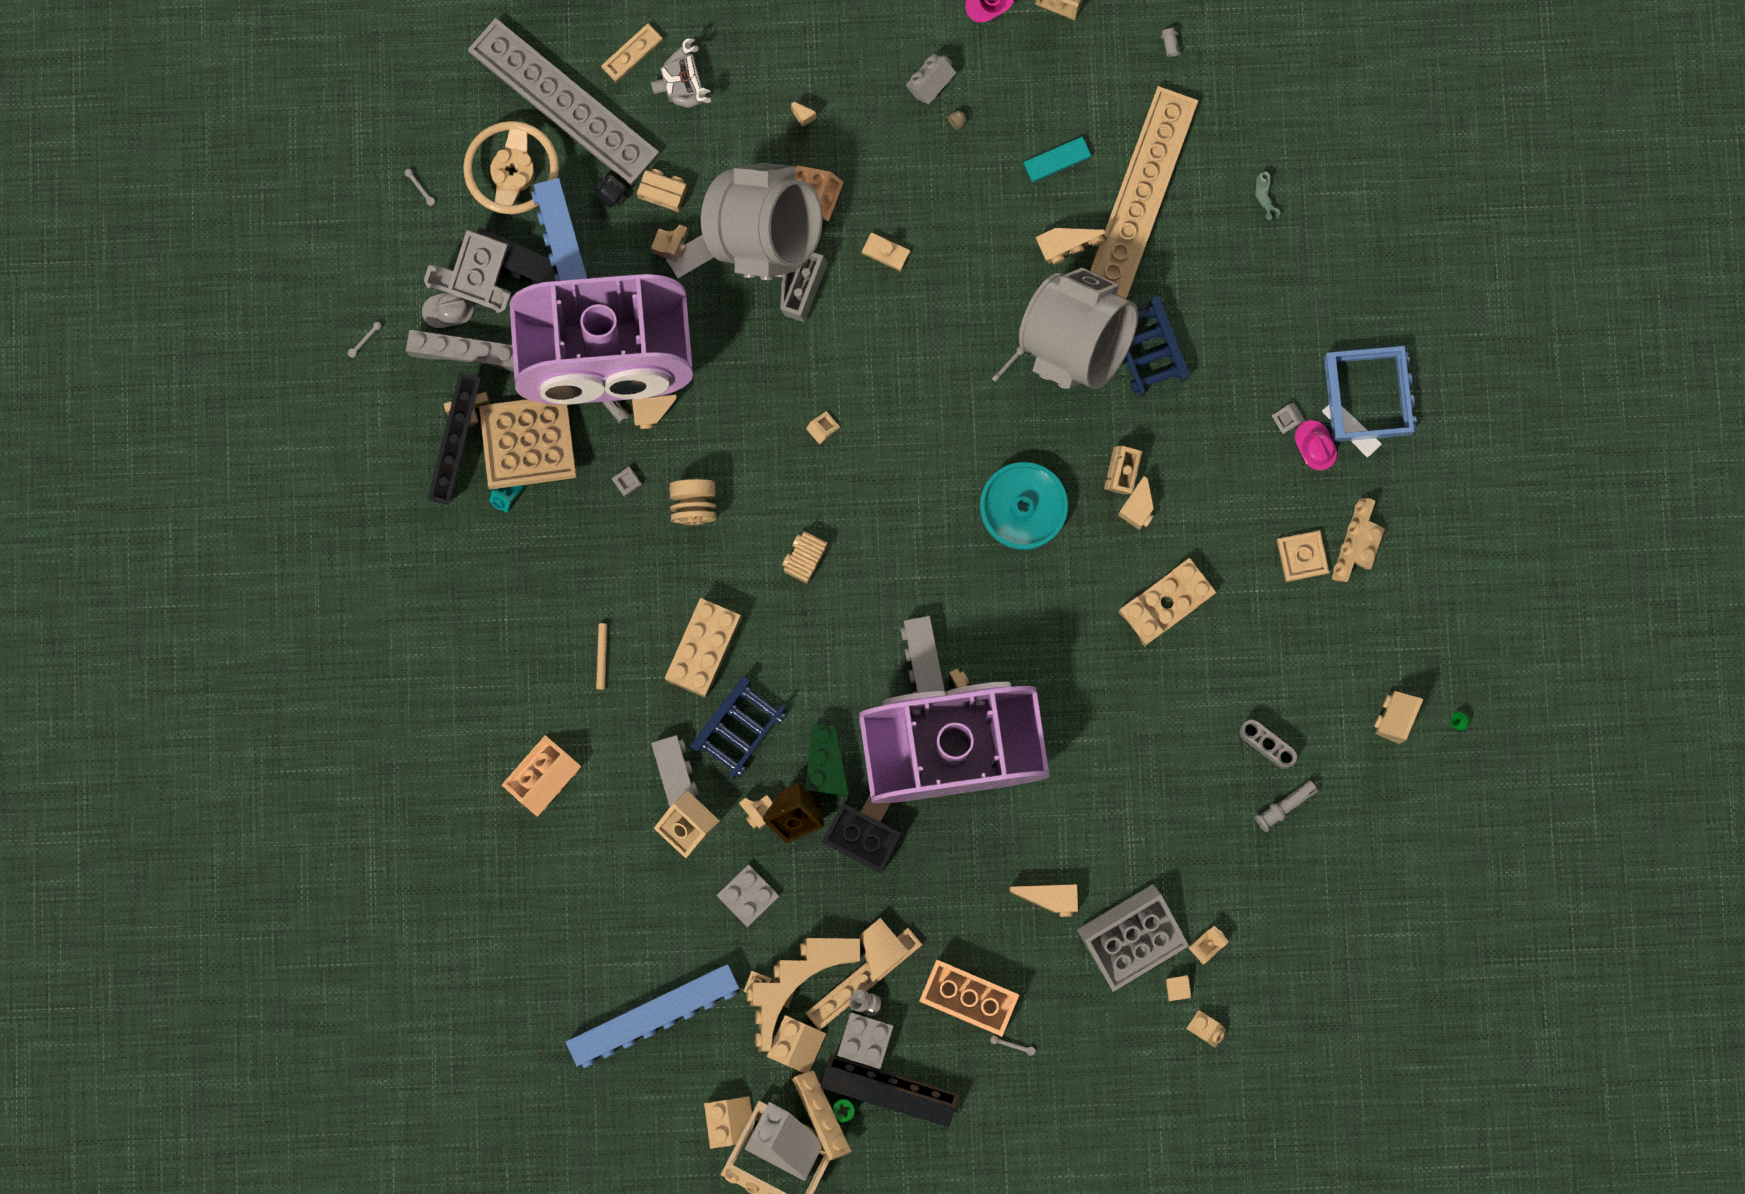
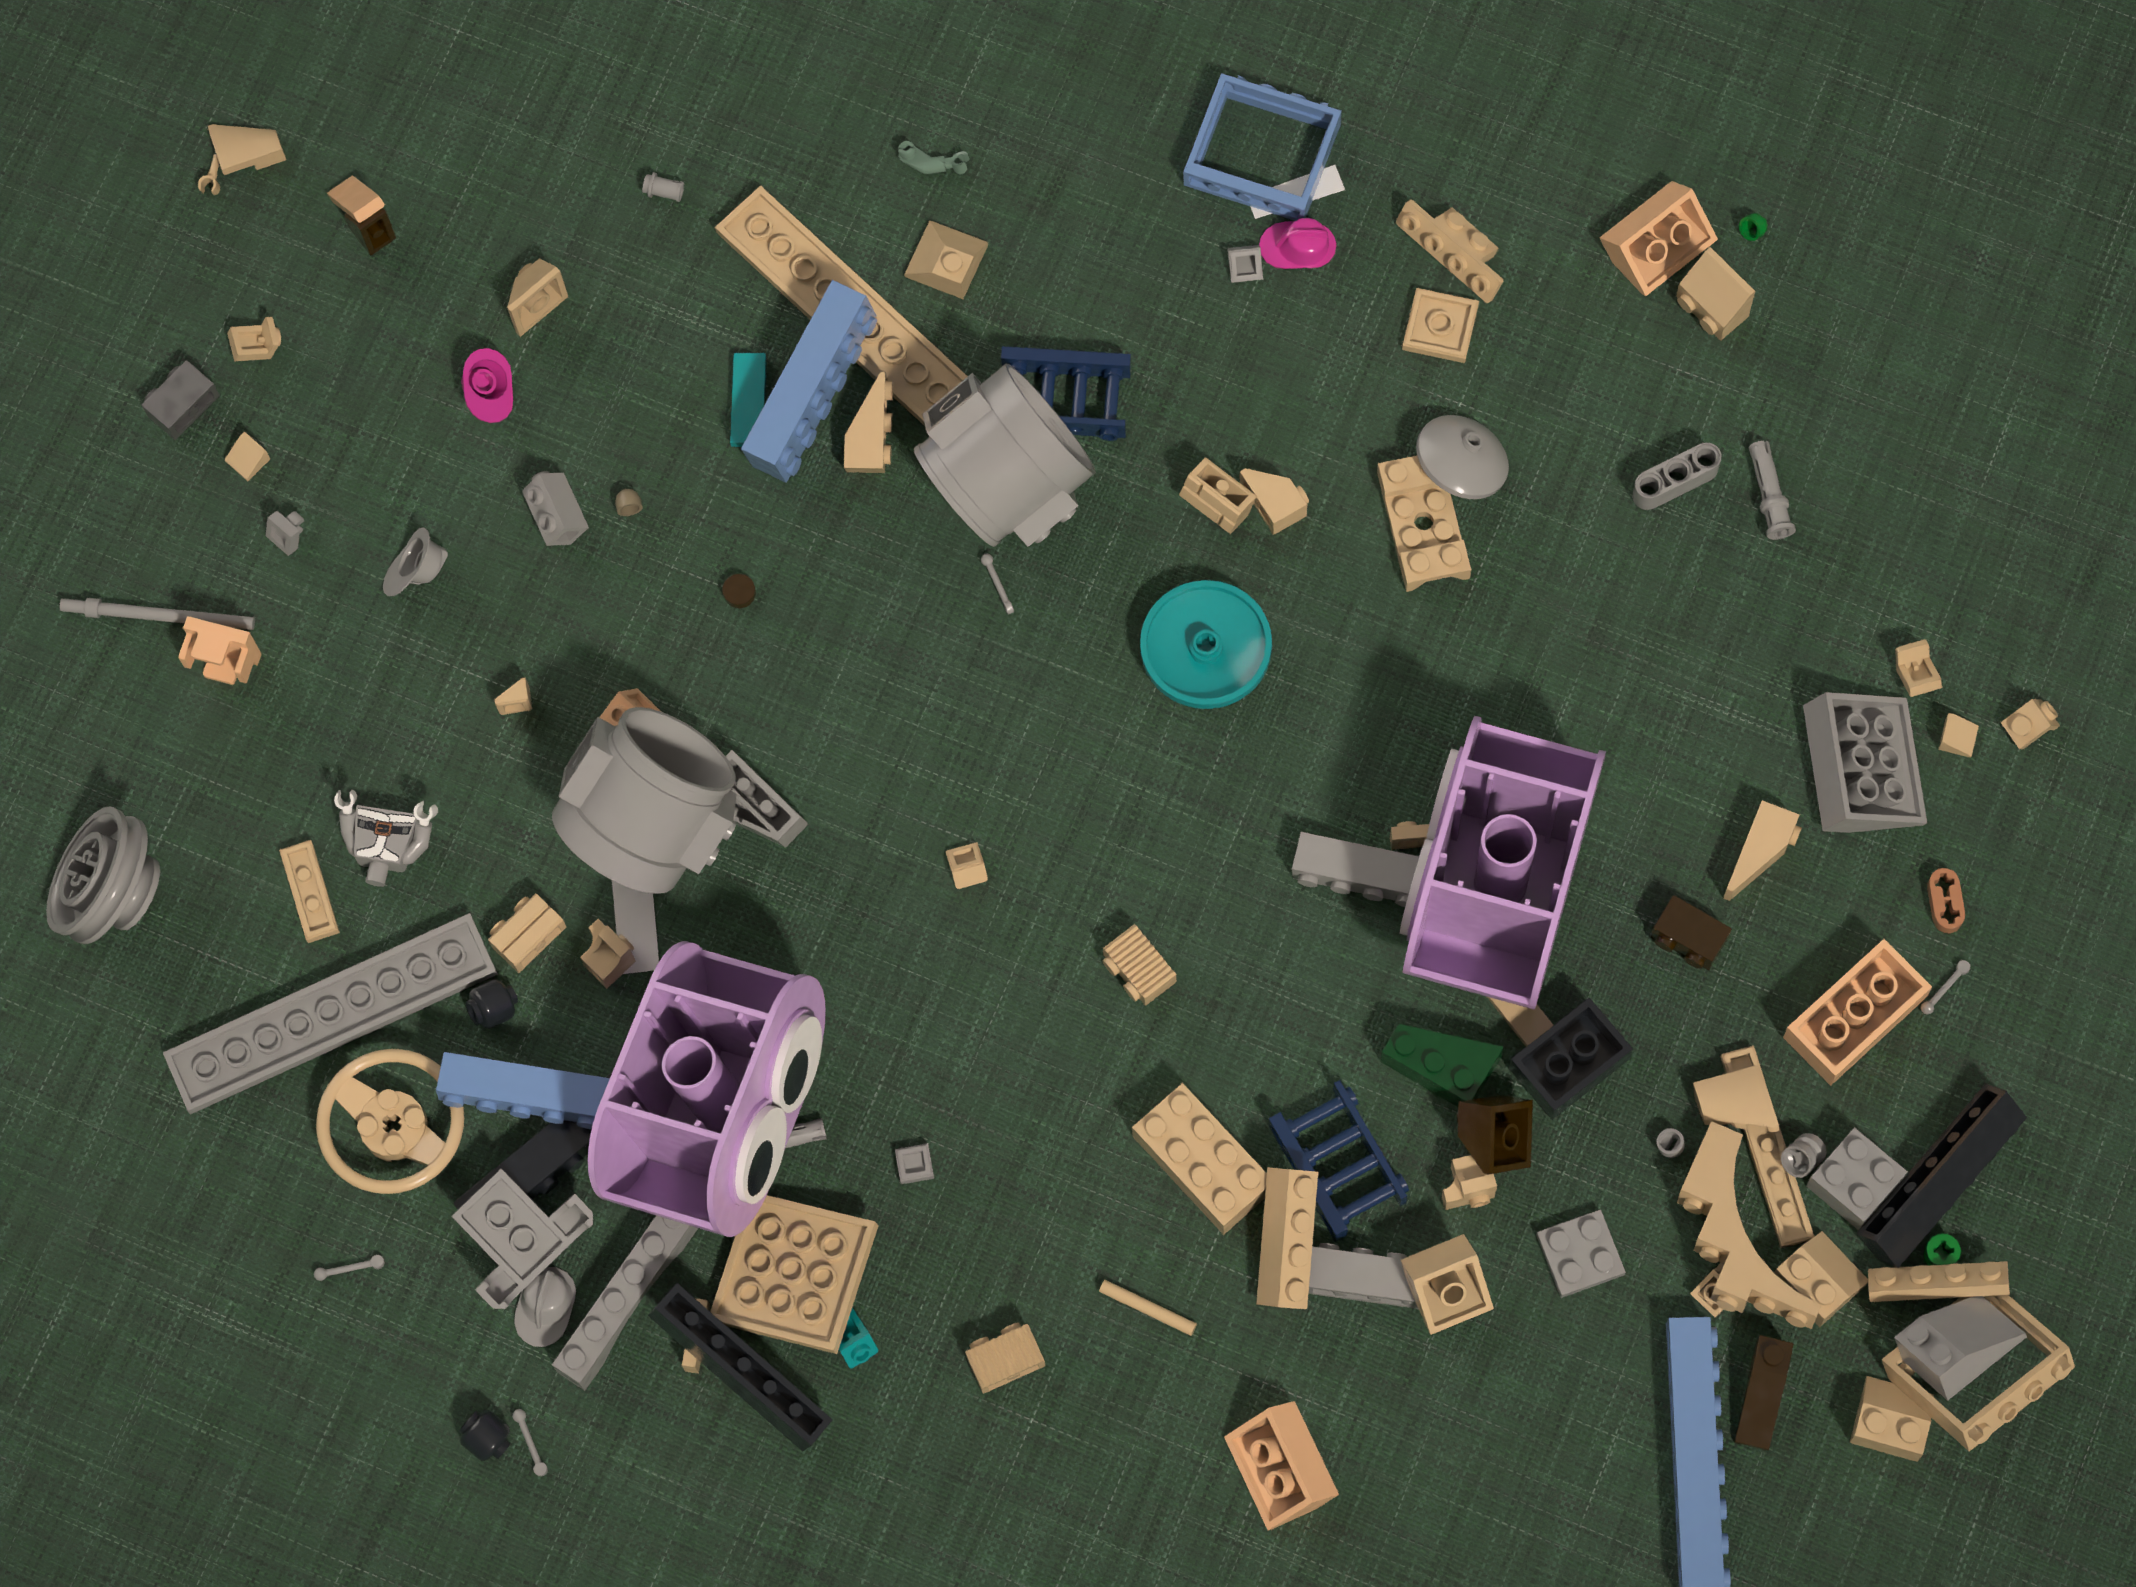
camera: 60 degrees left, 10 degrees down
(355, 312) = (485, 1435): none -> black head
(533, 587) = (1004, 1357): none -> tan brick
(650, 410) = (833, 1081): tan slope -> none
(674, 718) = (1287, 1238): none -> tan brick
(693, 505) = (990, 1079): tan wheel -> none
(709, 1039) = (1763, 1392): none -> dark brown slope
(838, 916) = (1665, 1140): none -> light grey hinge
(858, 13) = (415, 564): none -> light grey piece
(885, 252) = (763, 675): tan tile -> none
(932, 212) = (739, 591): none -> dark brown tile
(974, 877) = (1690, 933): none -> dark brown brick
(1065, 1019) = (1953, 898): none -> nougat beam
(1079, 190) = (810, 382): none -> medium blue brick
(1205, 235) = (946, 259): none -> tan slope
(1208, 604) = (1462, 457): none -> light grey dish
(1424, 665) = (1659, 237): none -> light nougat slope

